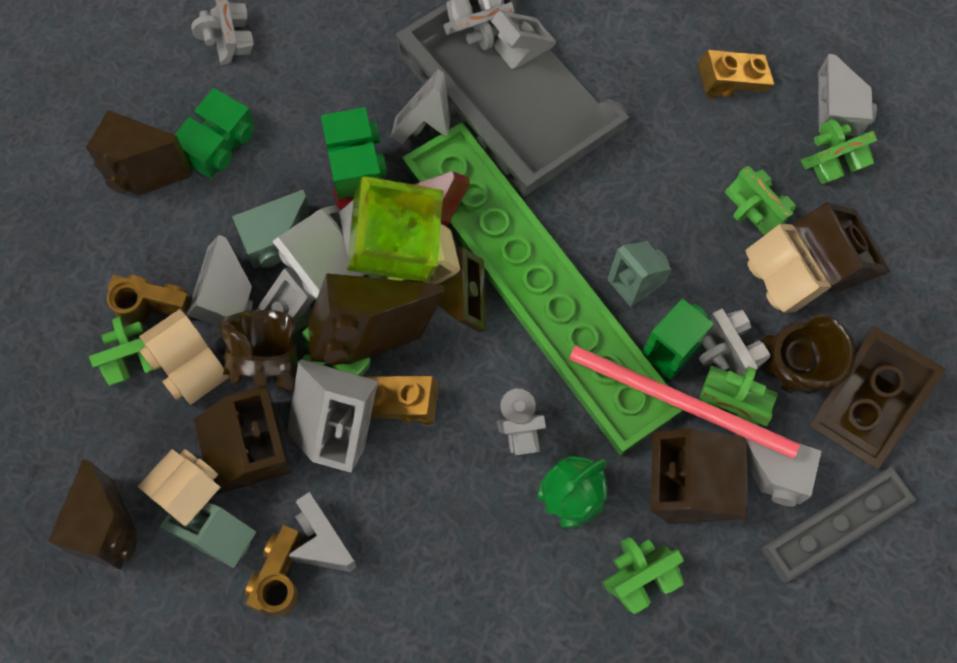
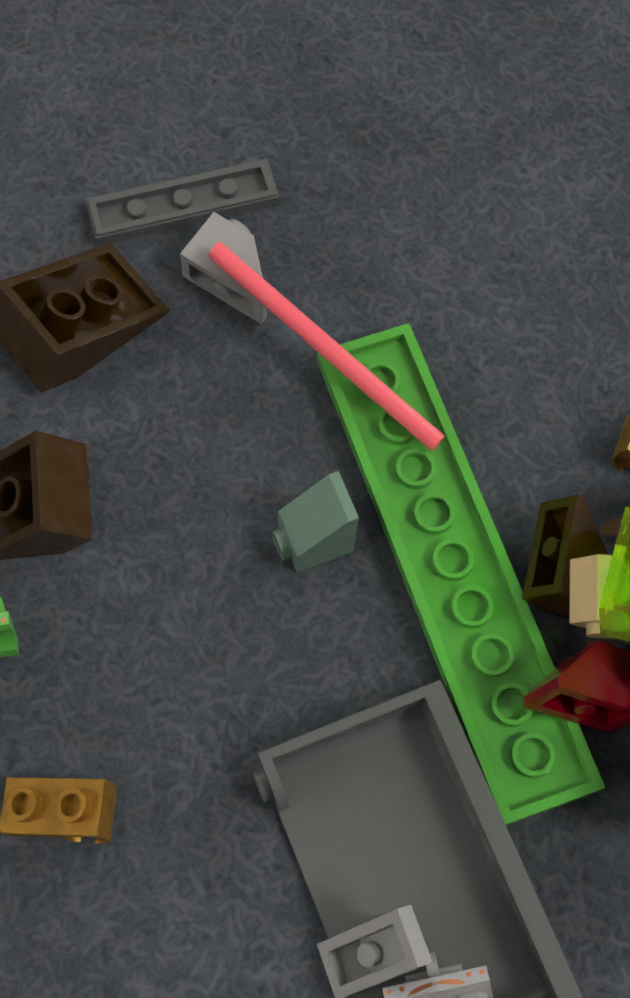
camera: 165 degrees left, 0 degrees up
(427, 106) = (561, 846): light grey slope -> none
(520, 423) = (528, 368): light grey hips -> none
(574, 490) = (479, 296): green helmet -> none
(640, 566) = (425, 200): bright green hips -> none
(677, 338) = (305, 417): green piece -> none
(699, 476) = (335, 264): dark brown slope -> none
(726, 347) = (220, 391): light grey hips -> none
(739, 394) = (249, 345): bright green hips -> none
(758, 202) = (120, 587): bright green hips -> none
(787, 269) = (119, 481): tan brick -> none
(810, 354) = (142, 366): dark brown hair -> none

